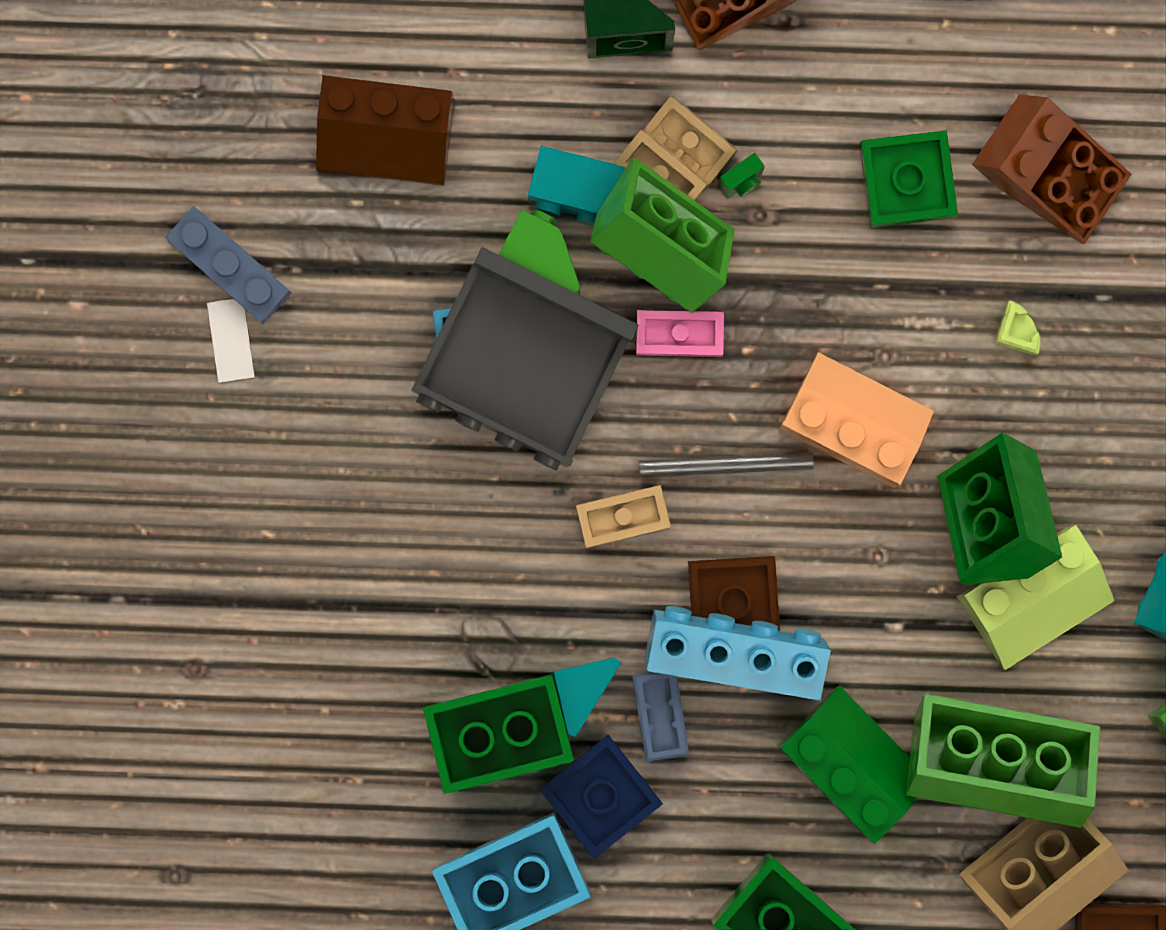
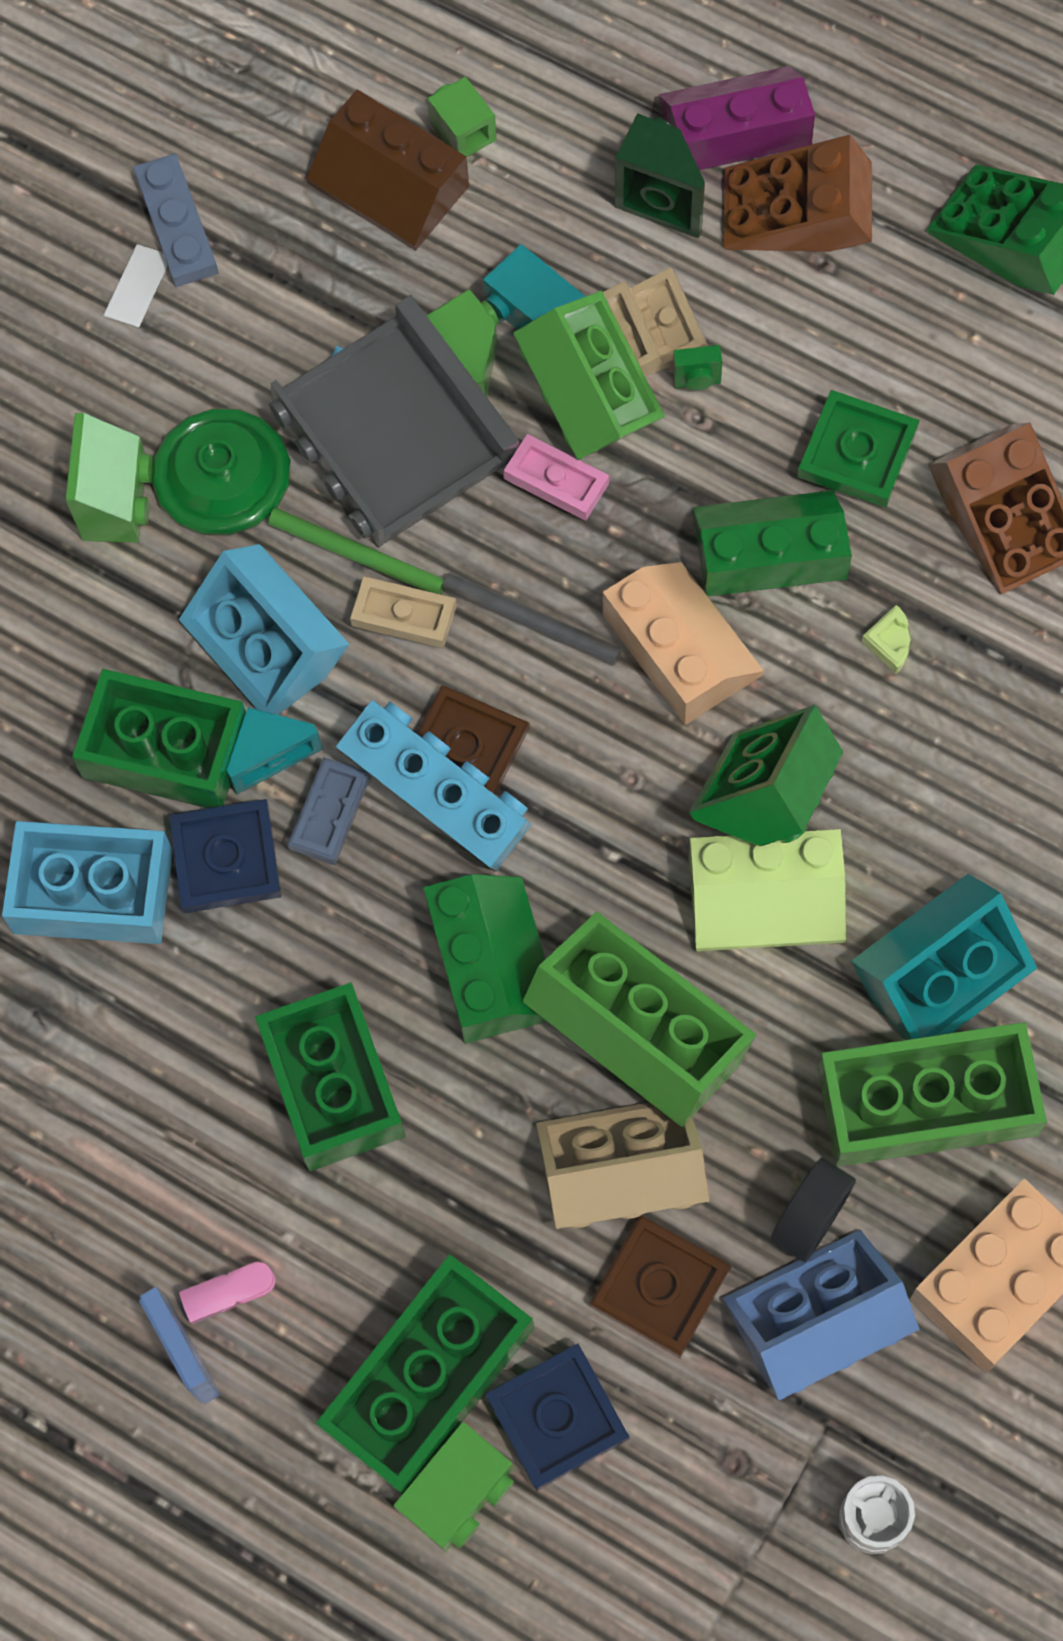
camera: 30 degrees right, 15 degrees down
(323, 537) = (107, 481): none -> slope
(402, 471) = (221, 471): none -> green piece
(417, 47) = (462, 117): none -> bright green brick
(520, 593) = (262, 629): none -> medium azure slope
(553, 482) = (355, 551): none -> bright green bar
(881, 295) = (772, 543): none -> green slope

